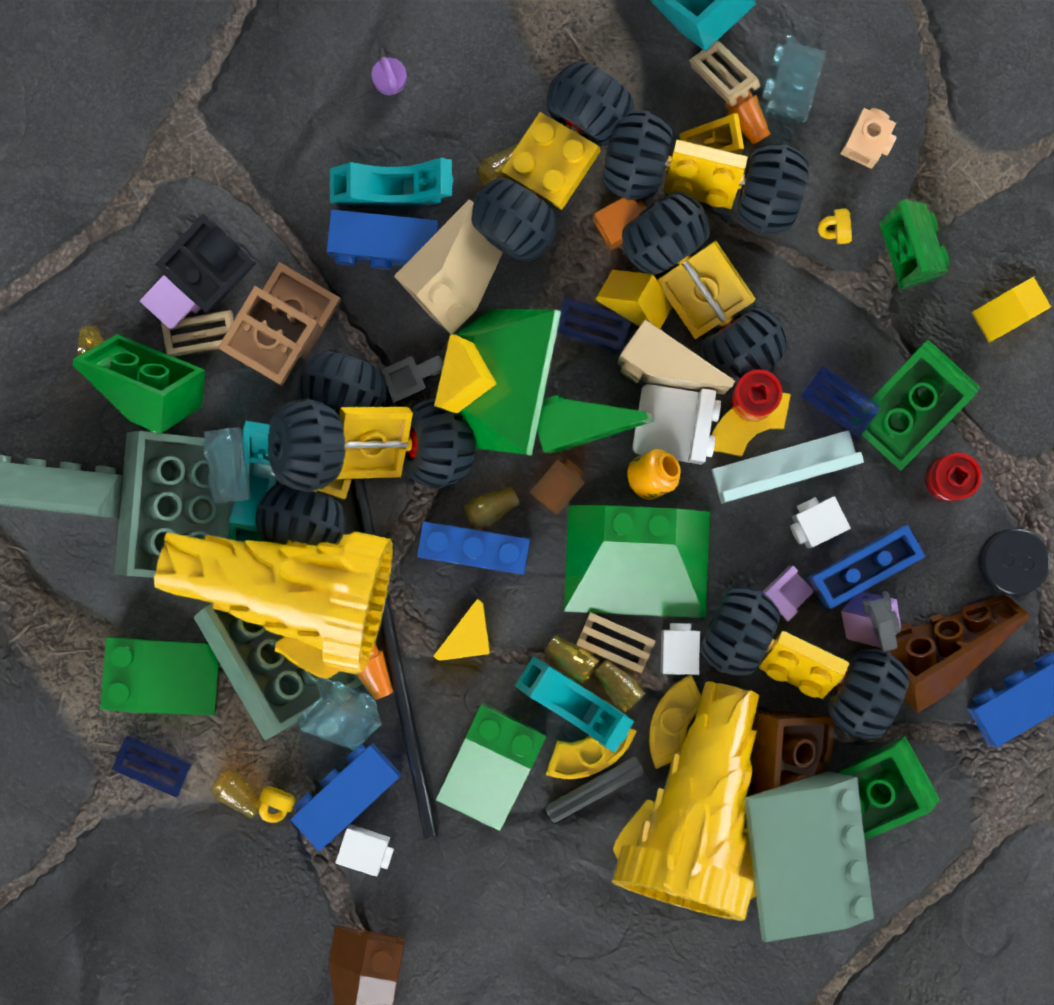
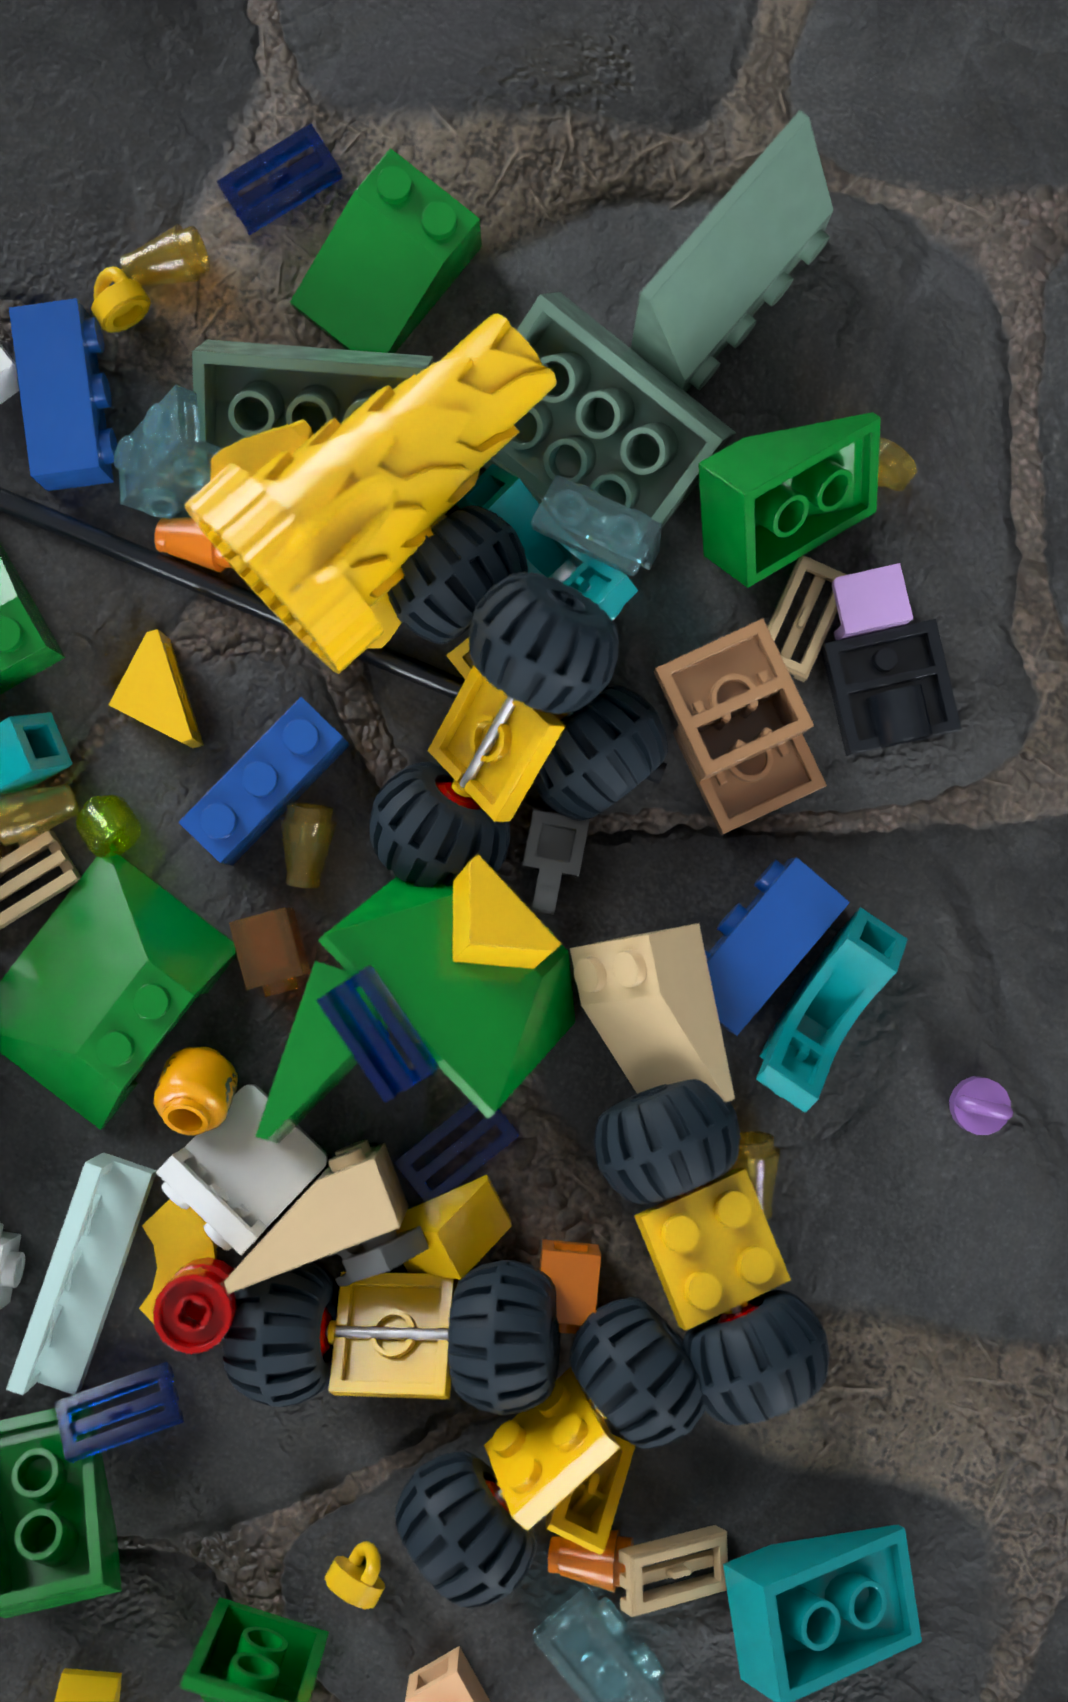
camera: 120 degrees right, 0 degrees up
(552, 616) = (108, 825): none -> clear neon green piece
(568, 398) = (370, 1040): none -> clear blue tile
(669, 322) = (380, 1254): none -> dark grey plate

